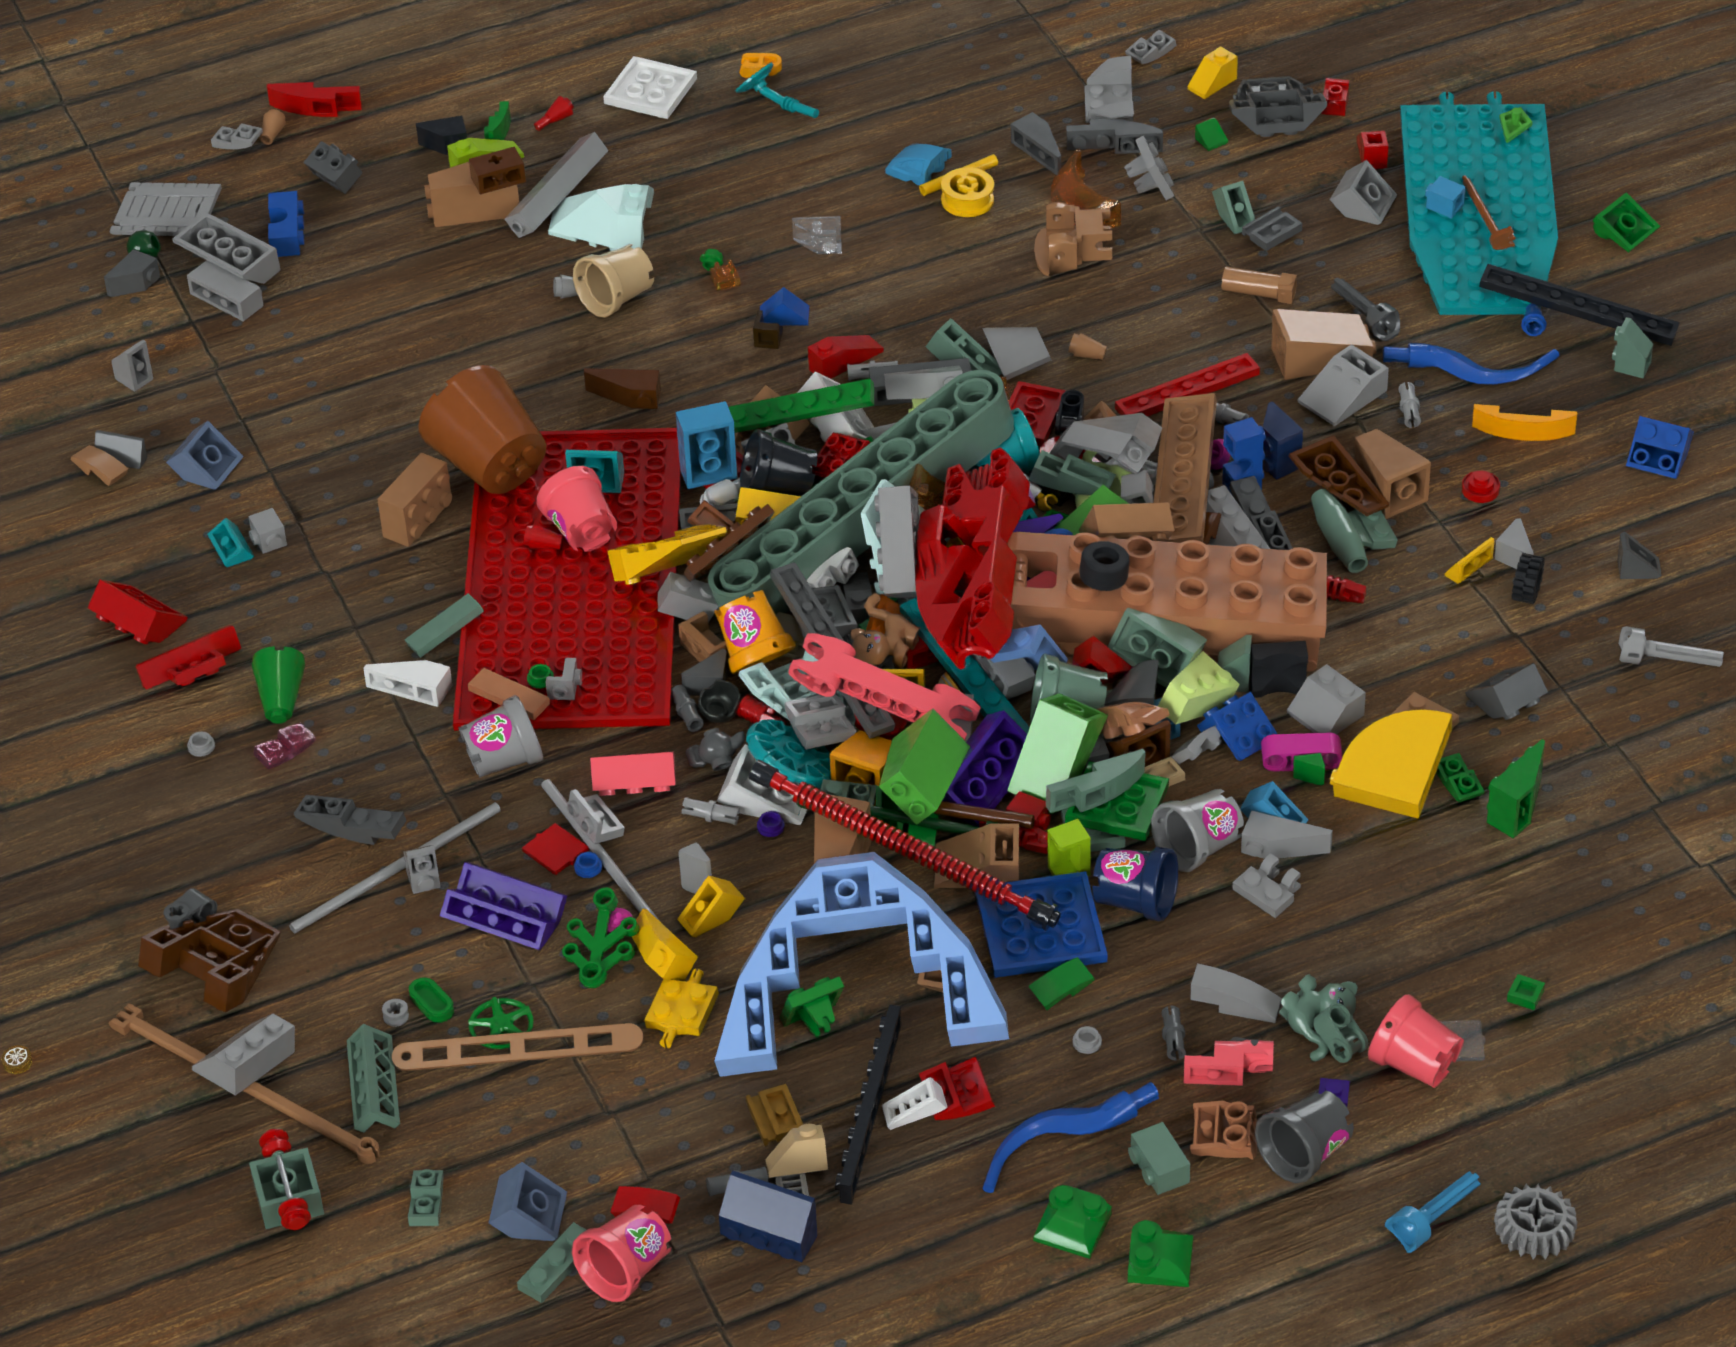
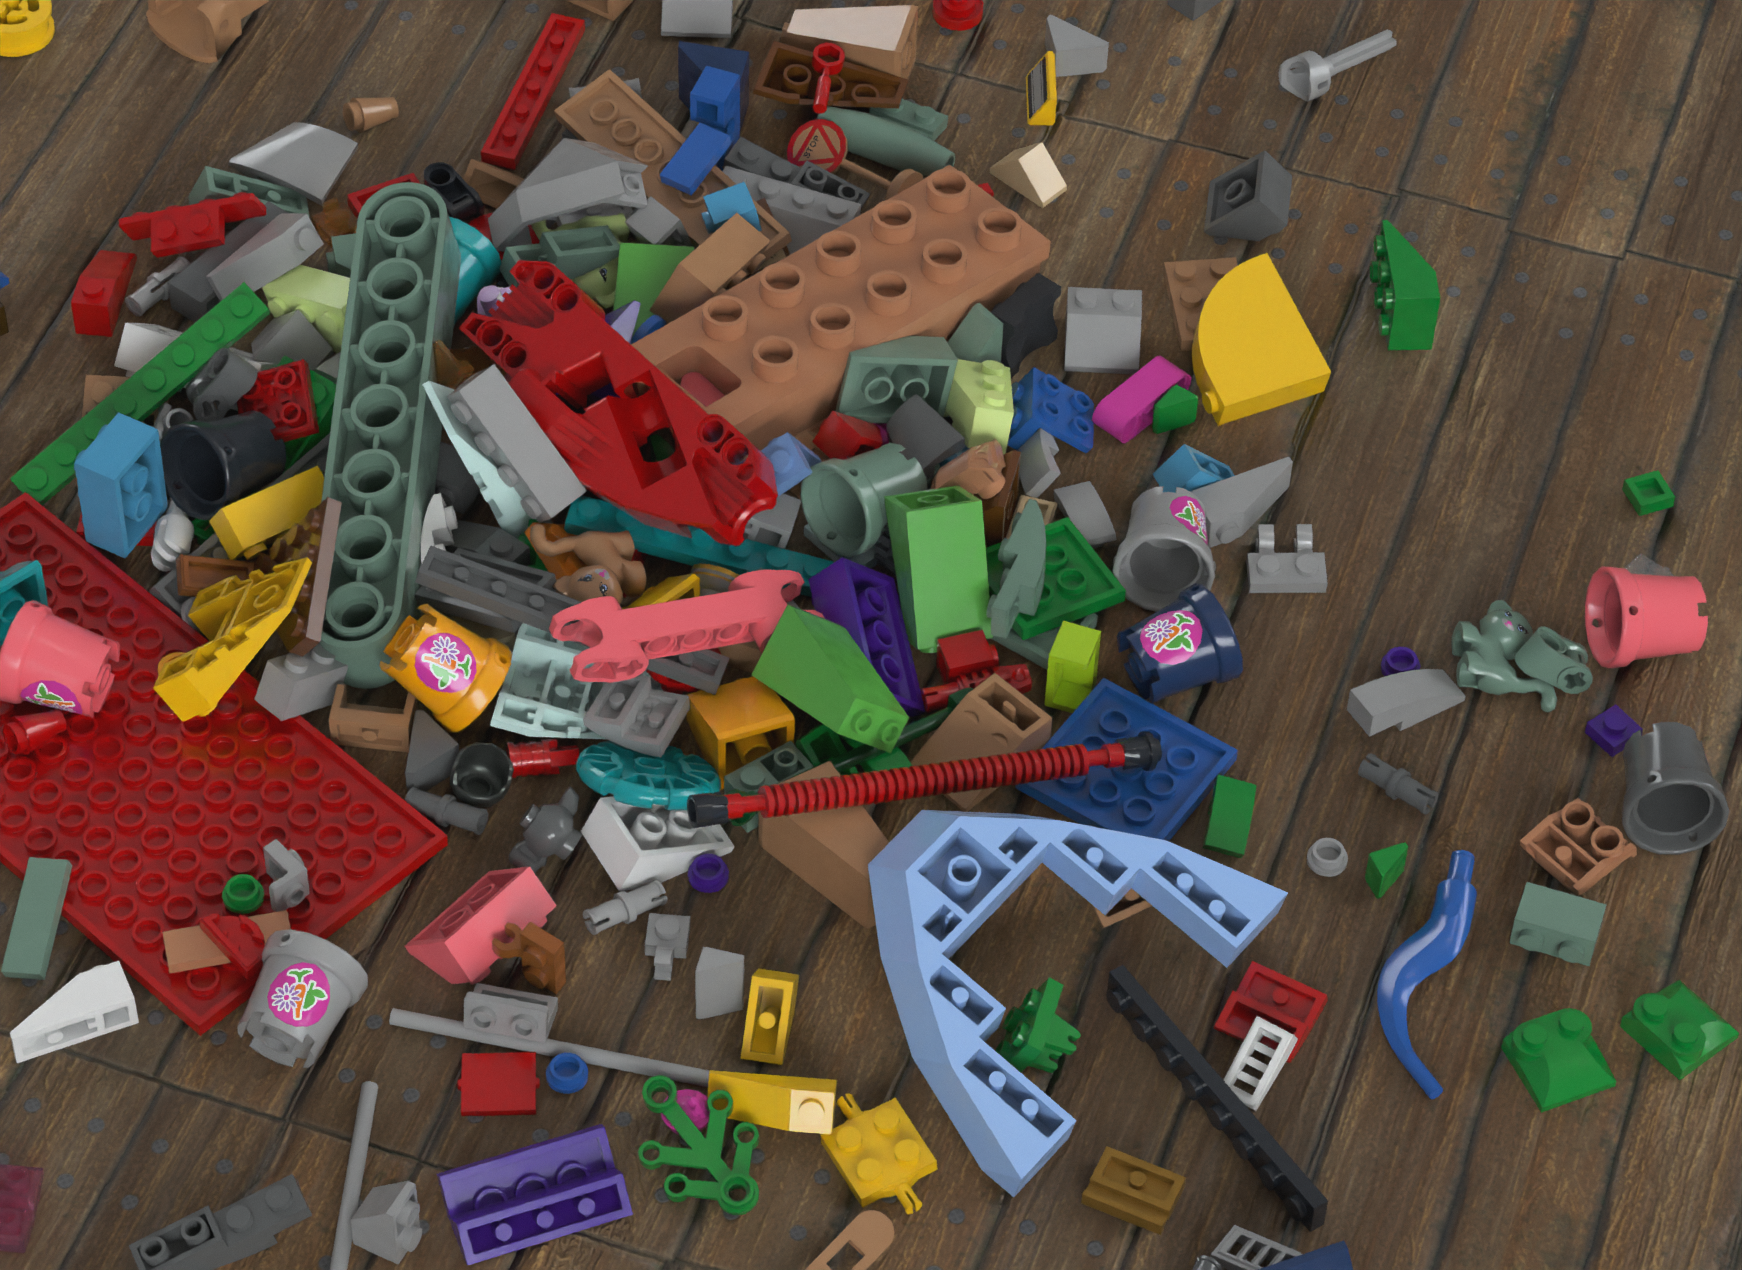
camera: 50 degrees left, 5 degrees up
(506, 688) = (237, 939): none -> red tile
(628, 793) = (540, 953): none -> dark orange plate
(714, 839) = (666, 939): none -> light grey plate
(799, 1152) = (1220, 1209): tan slope -> none
(816, 429) = (220, 381): none -> dark grey piece
(914, 346) = (191, 226): none -> red bracket
(985, 814) = (950, 684): reddish brown piece -> none
(1104, 566) = (789, 319): black tyre -> none
(1107, 1066) = (1385, 867): none -> green slope
(1182, 503) = (725, 204): none -> dark azure brick
(1189, 784) = (1086, 512): none -> light grey slope
(1197, 466) = (695, 158): none -> blue tile
(1229, 1062) = (1491, 769): coral plate -> none
(1260, 975) = (1399, 660): none -> dark purple plate
(1297, 513) = (827, 146): none -> medium nougat piece
(1345, 468) = (824, 82): none -> red piece
(1403, 601) = (1031, 174): none -> tan slope
(1458, 779) = (1328, 325): green slope -> none
(1528, 578) = (1132, 71): black tyre -> none

